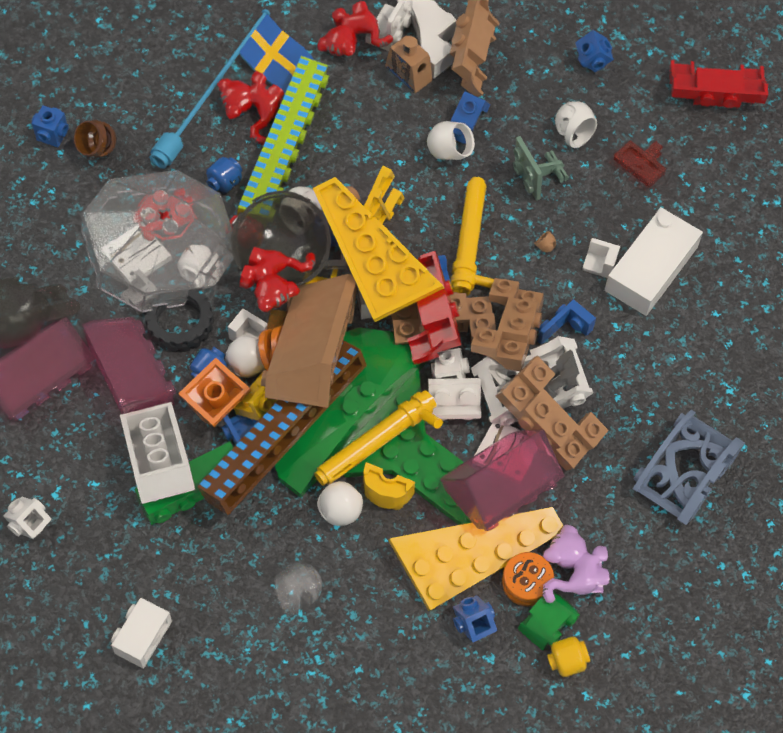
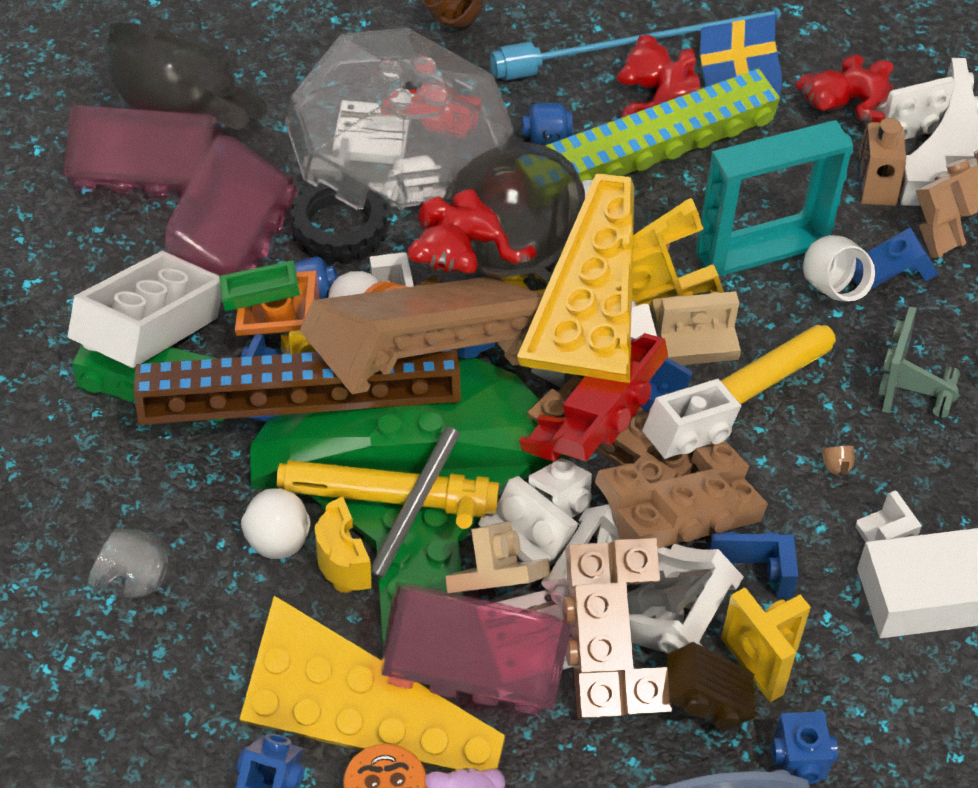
camera: 45 degrees right, 10 degrees down
(198, 390) = (259, 285): none -> green tile
(398, 126) = (783, 237): none -> teal piece
(400, 432) = (414, 502): none -> dark grey bar
(417, 226) = (698, 327): none -> tan bracket
(474, 432) = (497, 561): none -> tan bracket
(479, 278) = (691, 418): none -> white brick
(612, 363) = (765, 640): none -> yellow bracket
(614, 404) = (711, 687): none -> dark brown brick
(675, 396) = (804, 745): none -> blue brick

